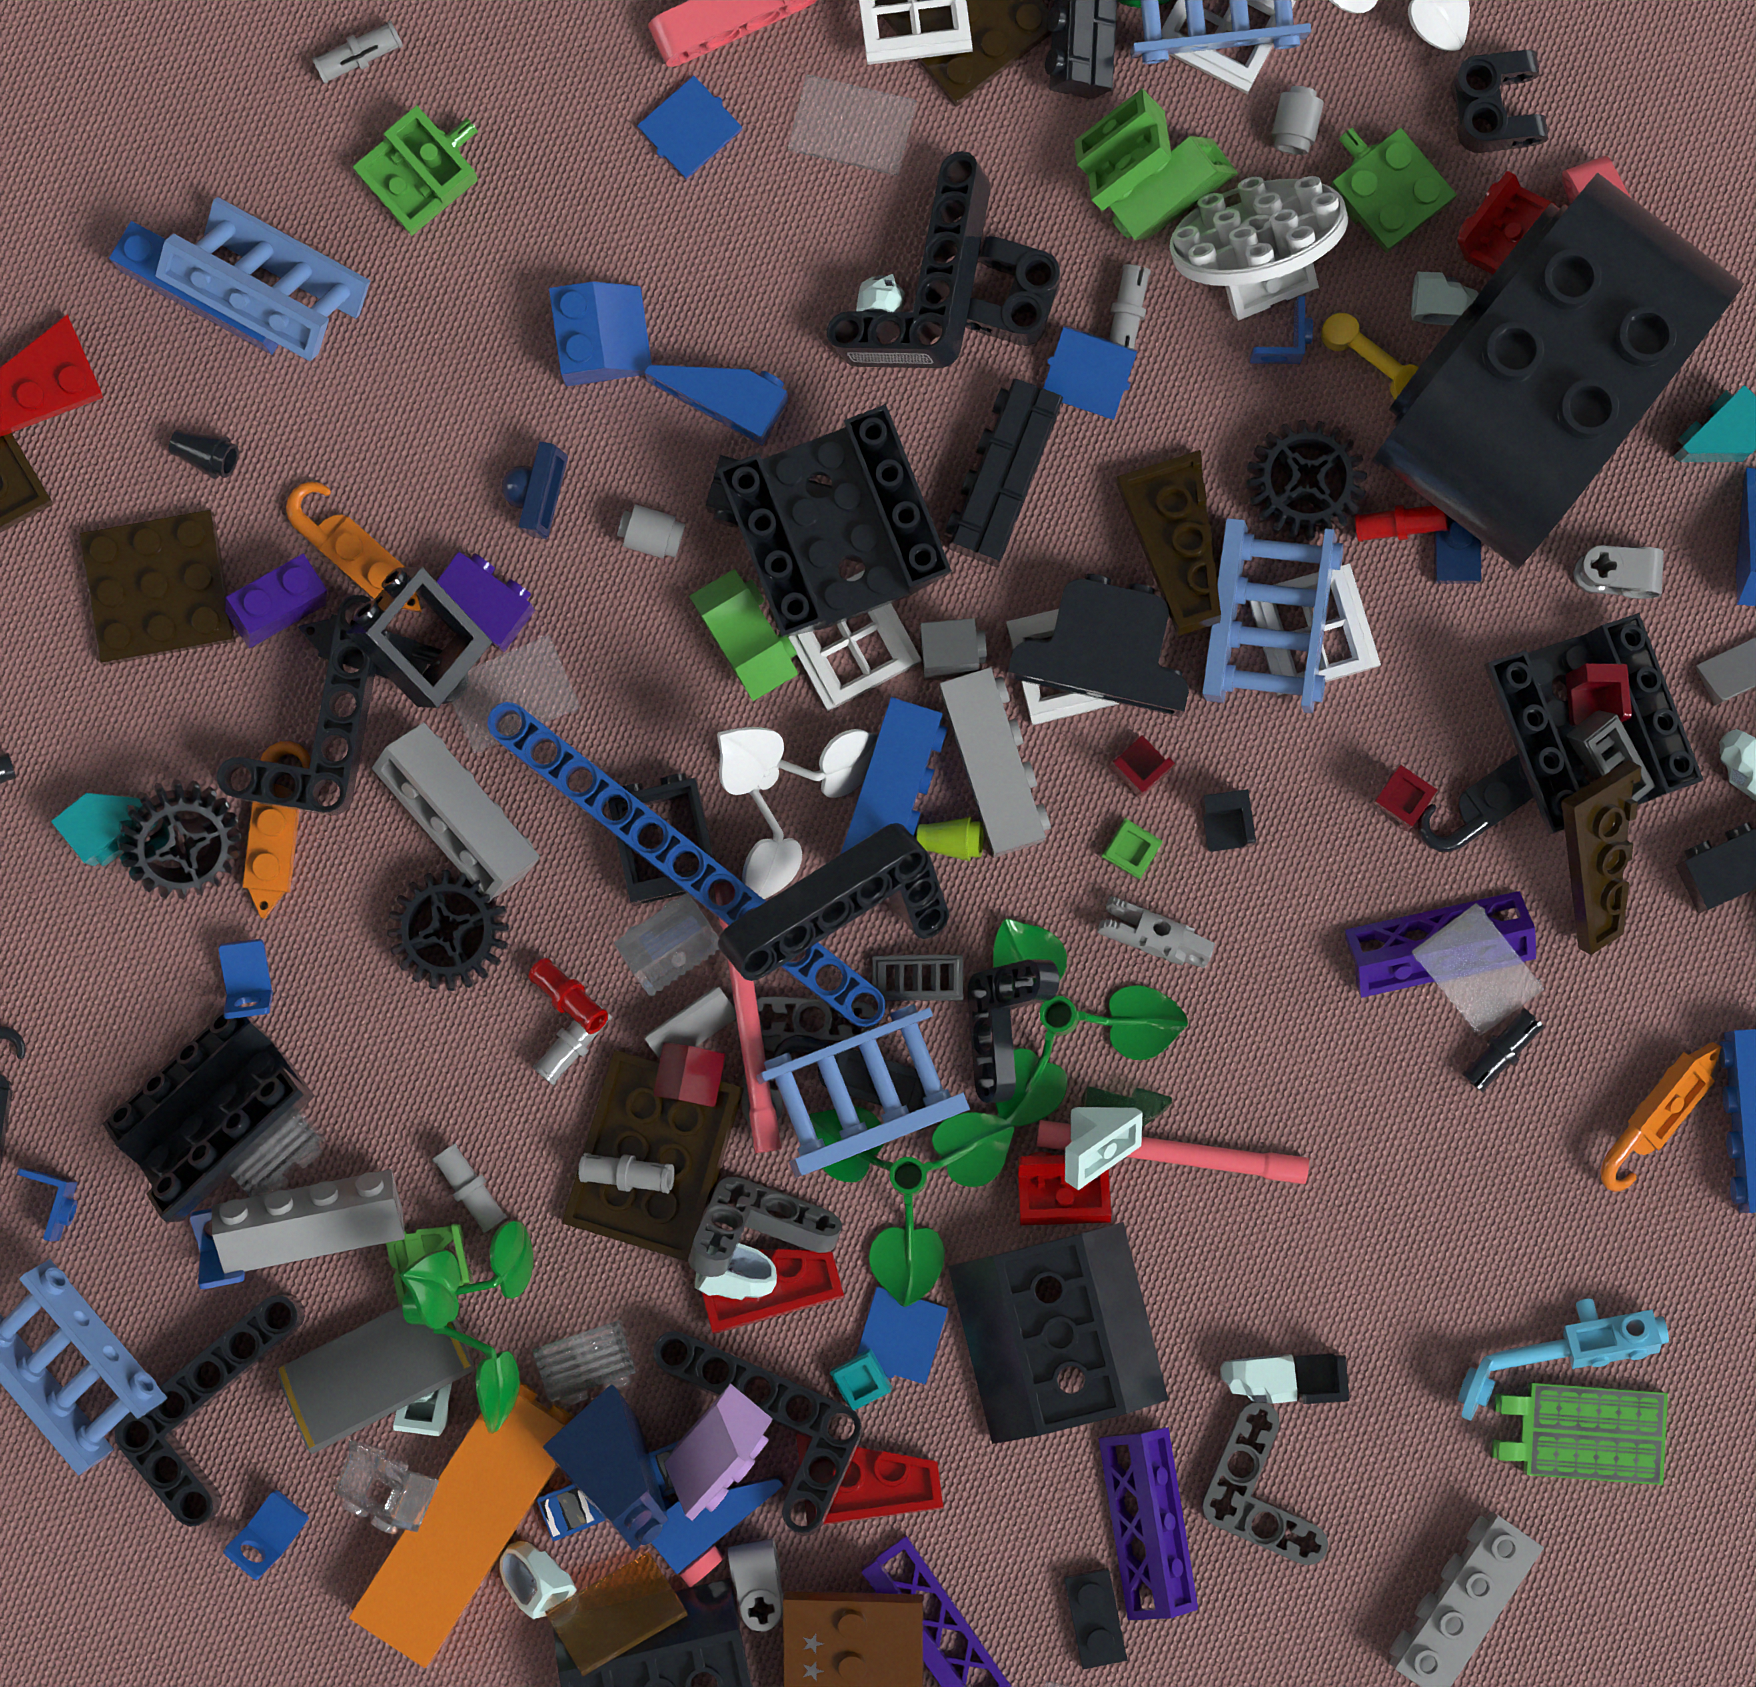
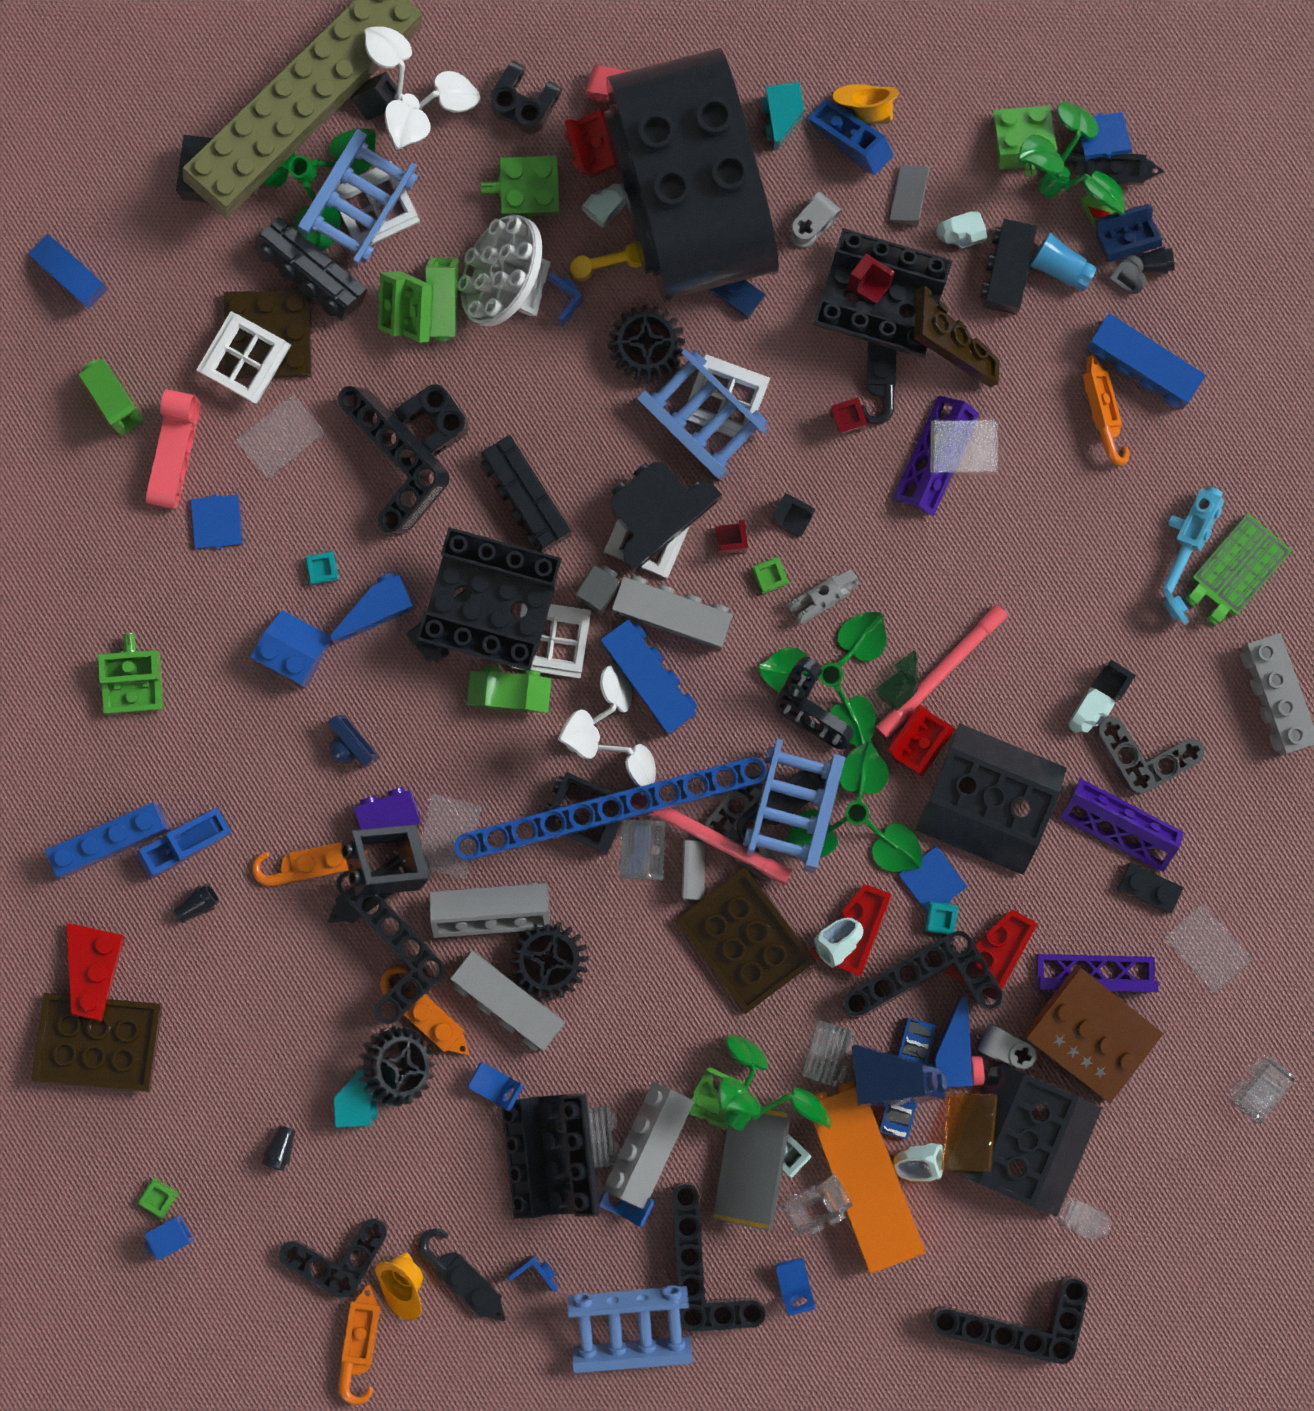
camera: 60 degrees left, 0 degrees up
(156, 587) = (249, 982): dark brown plate -> none
(249, 300) = (137, 818): medium blue fence -> none
(266, 381) = (183, 843): none -> blue slope
(276, 601) = (307, 923): dark purple brick -> none
(357, 52) = (42, 665): light grey pin -> none
(360, 917) = (508, 1001): none -> light grey brick
(469, 1188) = (692, 1048): light grey pin -> none
(564, 1051) = (655, 938): light grey pin -> none
(568, 995) = (630, 922): red pin -> none
(626, 1172) = (746, 959): light grey pin -> none
(651, 532) = (418, 700): light grey brick -> none
(689, 1074) = (718, 889): dark red panel -> none
(717, 1451) = (926, 1017): lavender slope -> none
(727, 295) = (322, 568): none -> teal tile
(817, 1230) = (848, 884): dark grey beam -> none
(875, 869) = (689, 708): black beam -> none
(880, 295) = (384, 489): light aqua rock -> none
(953, 838) = (697, 662): lime cone -> none
(955, 965) = (769, 714): dark grey slope -> none
(1090, 372) = (506, 411): blue piece -> none
(1099, 1141) = (910, 702): light aqua slope -> none
(1129, 305) = (488, 368): light grey pin -> none
(1175, 534) = (618, 429): dark brown wing -> none
(1297, 120) = (455, 207): light grey brick -> none
(1400, 522) = (704, 312): red pin -> none
(1503, 1050) = (1014, 464): black pin -> none
(1596, 736) = (890, 296): dark grey slope -> none

